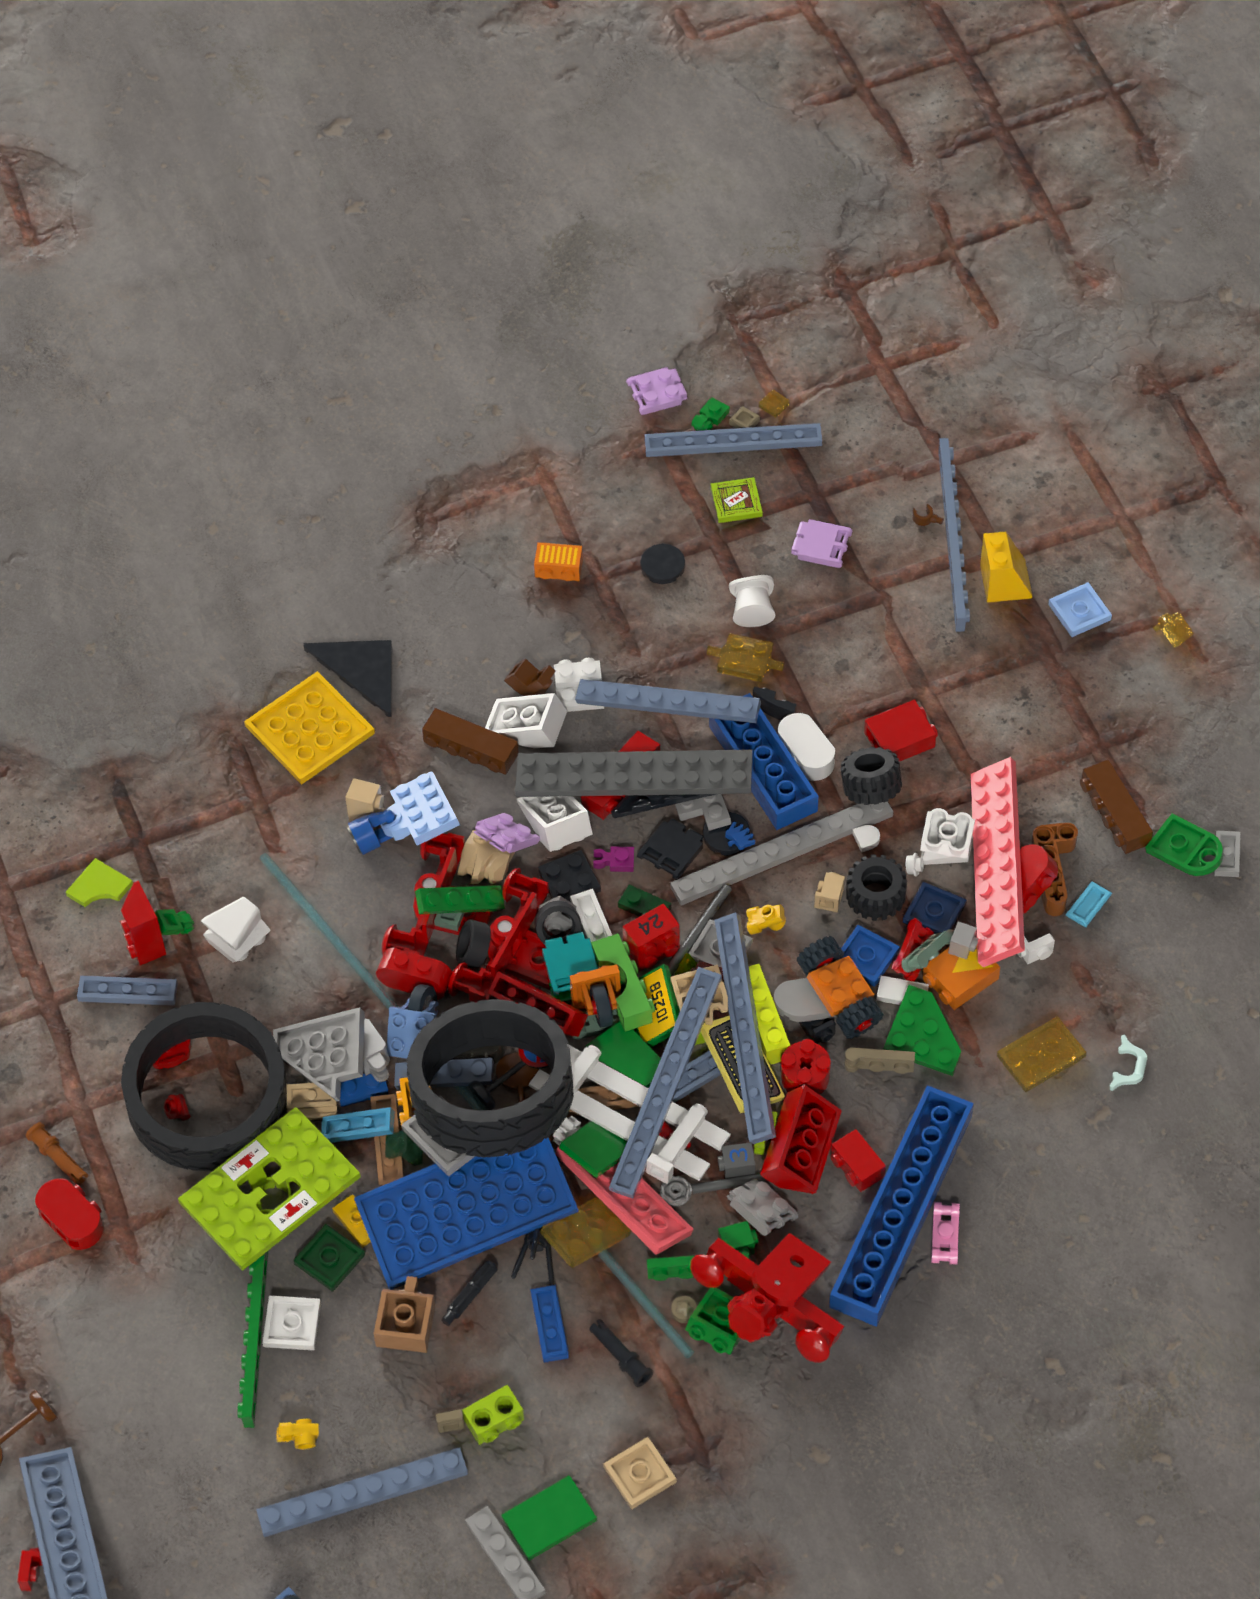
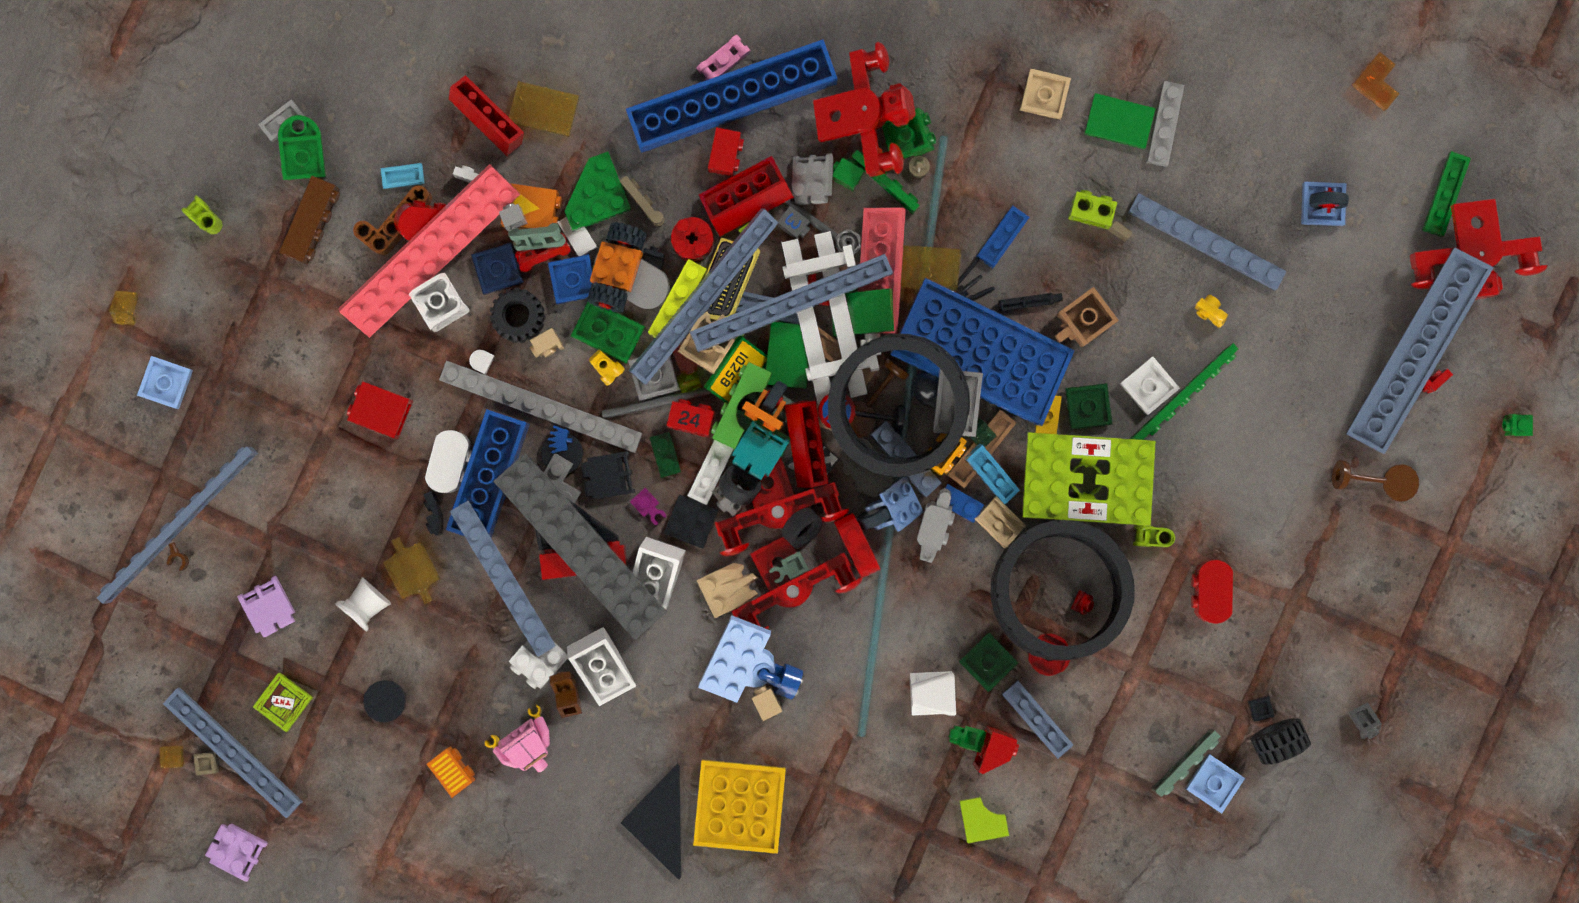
camera: 135 degrees left, 30 degrees up
(50, 1147) = (1183, 652): dark orange pin -> none
(167, 1206) = (1149, 536): none -> lime piece
(212, 987) = (988, 662): none -> dark green plate
(325, 1049) = (965, 542): light grey wing -> none
(459, 899) = (782, 563): green plate -> none
(470, 741) = (651, 687): reddish brown brick -> none
(505, 833) = (701, 590): lavender plate -> none
(523, 621) = (524, 745): none -> bright pink torso
(628, 1361) = (983, 166): black pin -> none
(711, 413) = (221, 791): green plate -> none
(782, 946) = (608, 332): none -> green tile
(871, 776) = (424, 403): black tyre -> none
(914, 864) = (475, 309): white plate -> none
(1003, 569) = (181, 458): yellow slope -> none
(1078, 1000) = (486, 115): none -> red brick
(1137, 1076) = (488, 48): light aqua helmet -> none
(1198, 736) = (201, 213): none -> lime piece

